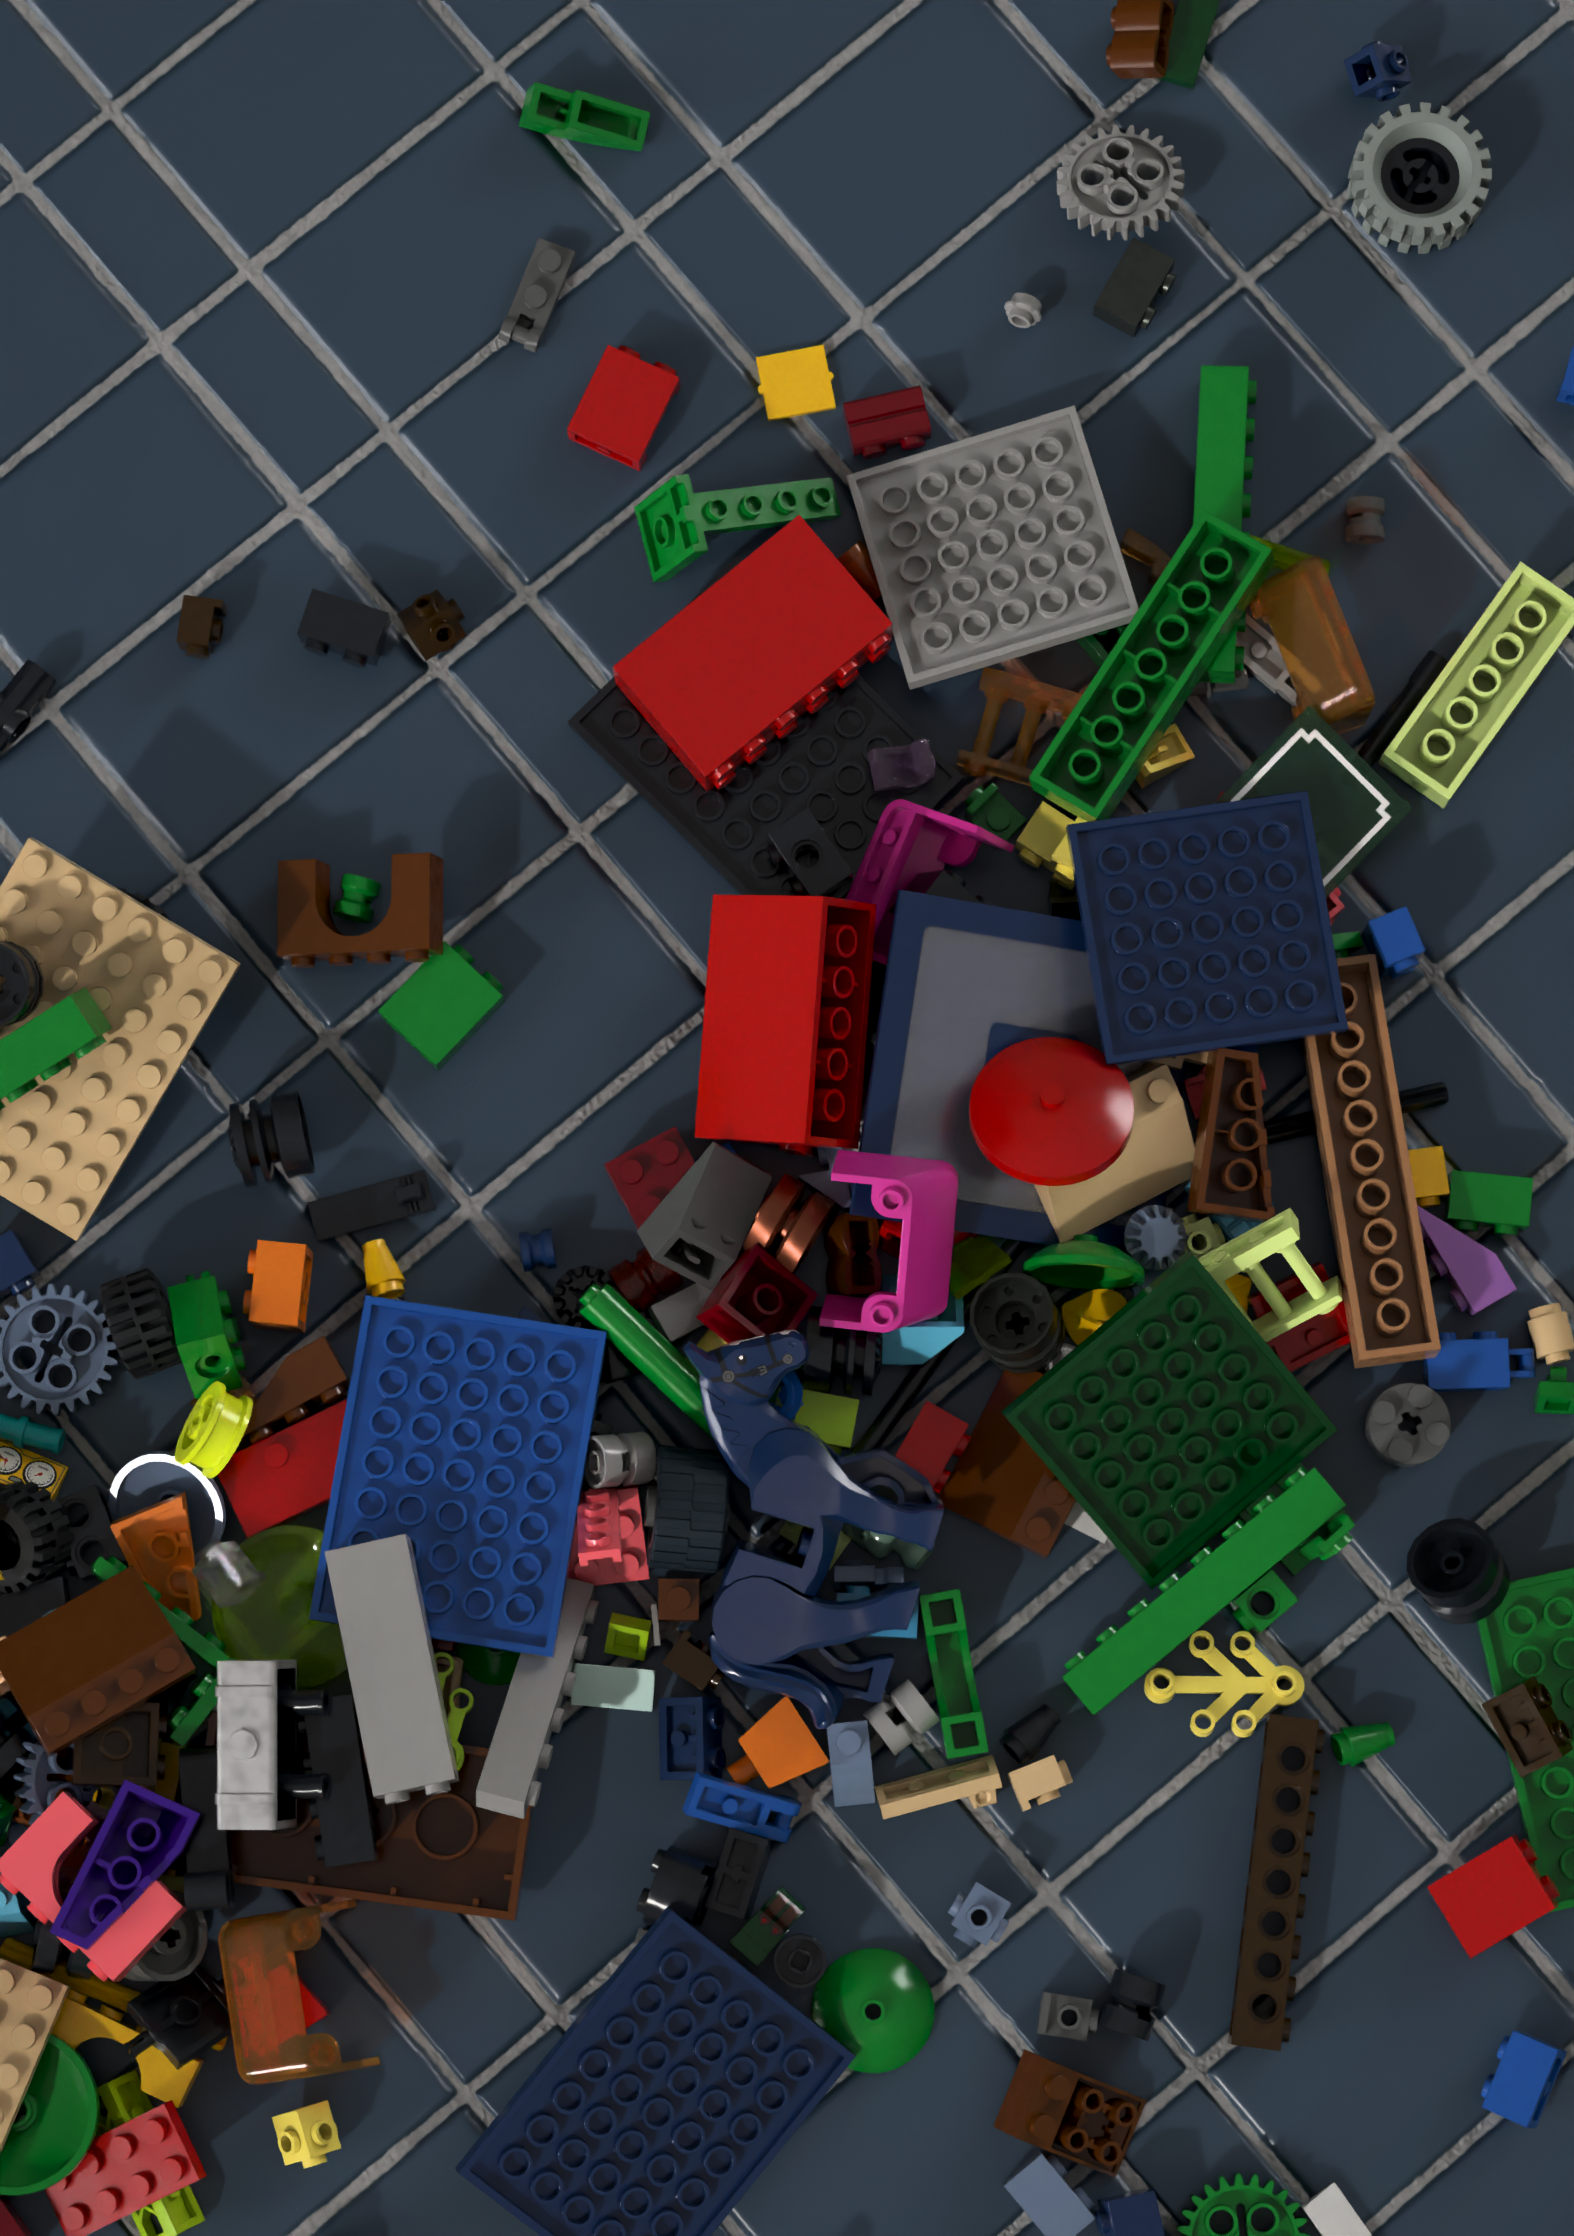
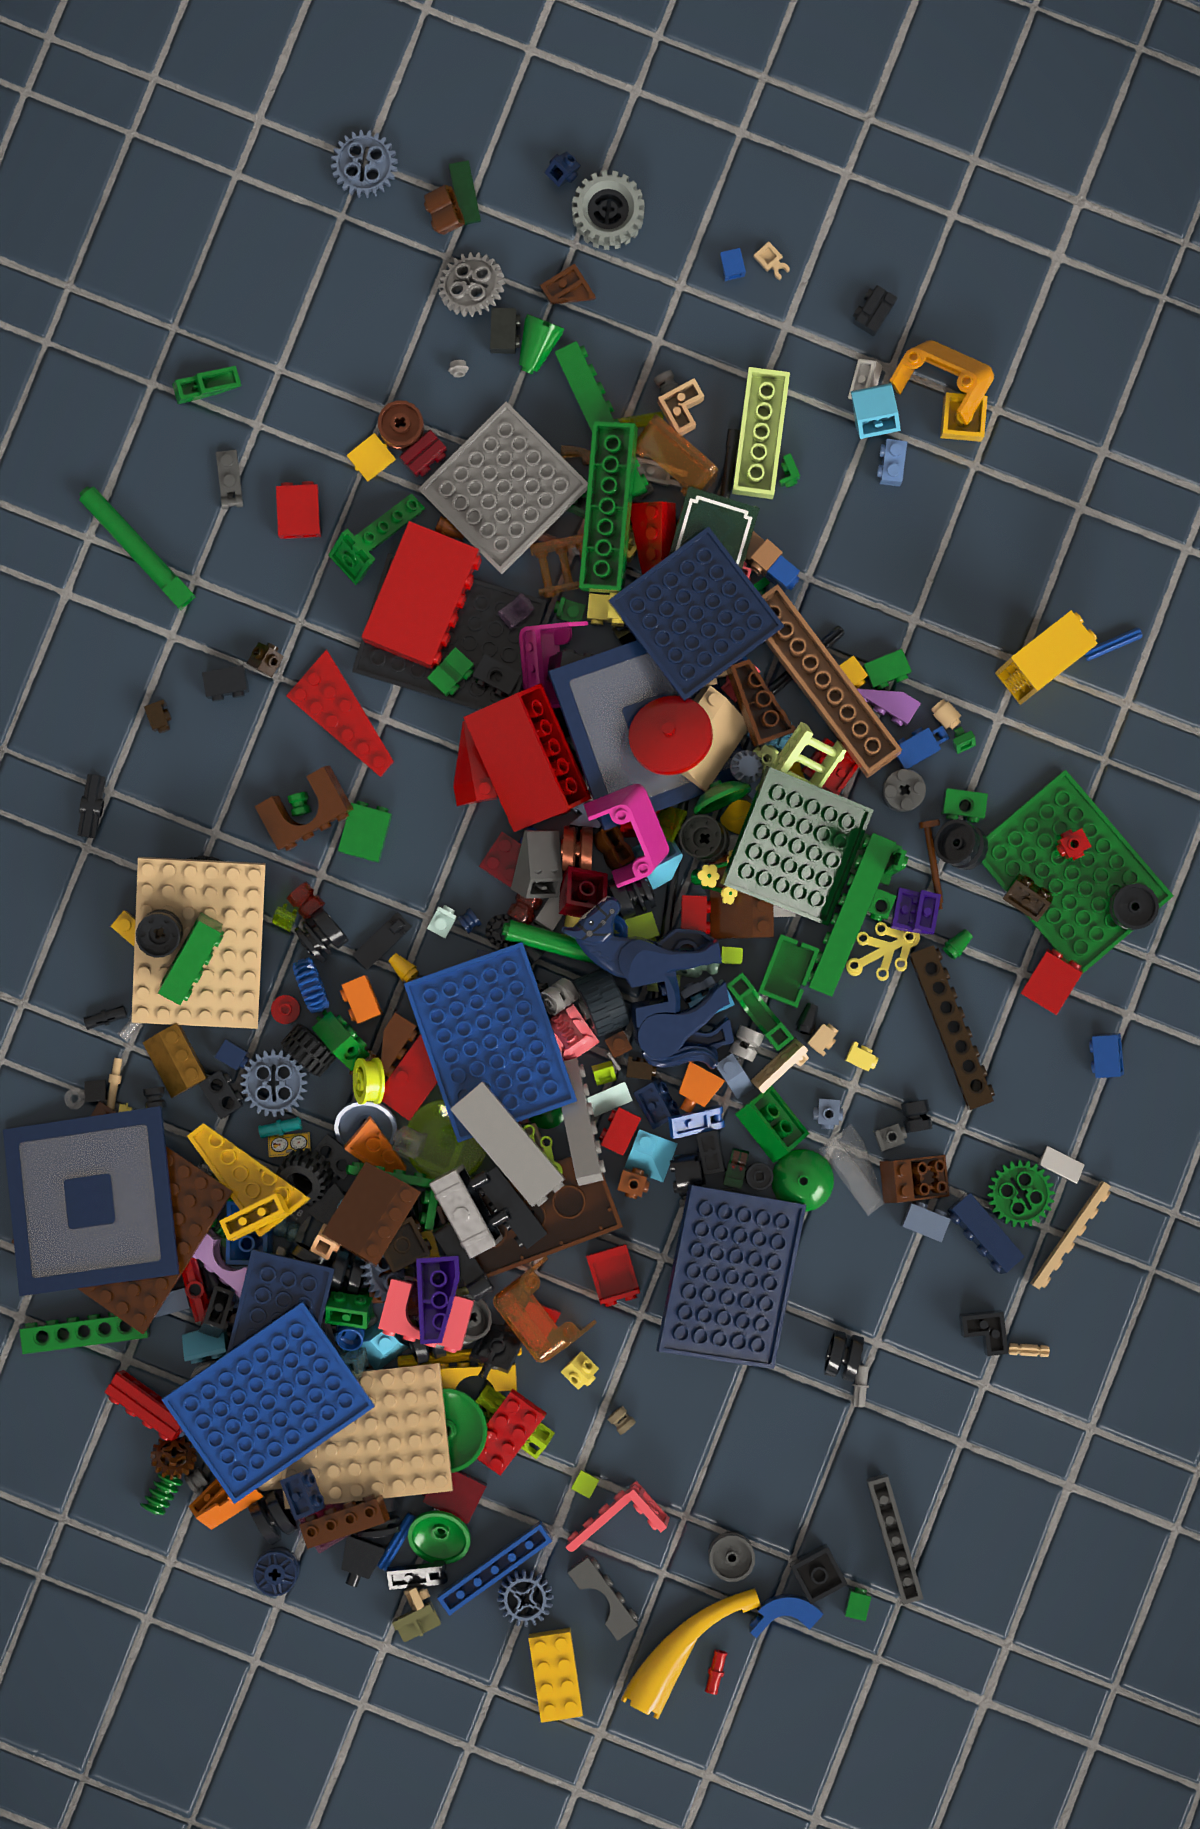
camera: 35 degrees left, 5 degrees up
(142, 1234) = (285, 1009): none -> red piece
(207, 1215) = (310, 985): none -> blue gear
(225, 1078) = (284, 918): none -> clear neon green tile
(277, 1066) = (305, 900): none -> clear red wheel
(319, 326) = (136, 547): none -> green brick
(455, 1998) = (613, 1275): none -> red panel
(492, 1227) = (442, 921): none -> light aqua bracket
(506, 766) = (331, 703): none -> red wing
(561, 1854) = (626, 1185): none -> dark orange brick
(601, 1751) = (620, 1130): none -> red brick
(632, 1823) = (651, 1154): none -> medium azure slope
(672, 1010) = (471, 777): none -> red wedge
(735, 811) = (451, 672): none -> green brick
(869, 331) = (400, 413): none -> copper wheel
(872, 1882) = (772, 1124): none -> green slope
(957, 1551) = (731, 955): none -> lime slope
(974, 2029) = (852, 1164): none -> clear wedge
(984, 1393) = (707, 879): none -> light yellow plant
(1040, 1630) = (788, 970): none -> green piece
(1089, 1849) = (861, 1057): none -> light yellow brick
(1180, 336) = (537, 342): none -> green cone
(1209, 750) = (653, 531): none -> red wedge
(1281, 272) = (567, 287): none -> reddish brown wing
(1318, 1645) = (915, 911): none -> dark purple slope
(1365, 560) = (676, 405): none -> tan brick
(1373, 889) = (761, 554): none -> medium nougat brick
(1416, 1509) = (932, 856): none -> reddish brown piece
(1500, 769) = (789, 467): none -> green bracket
(1524, 1513) = (976, 801): none -> green brick

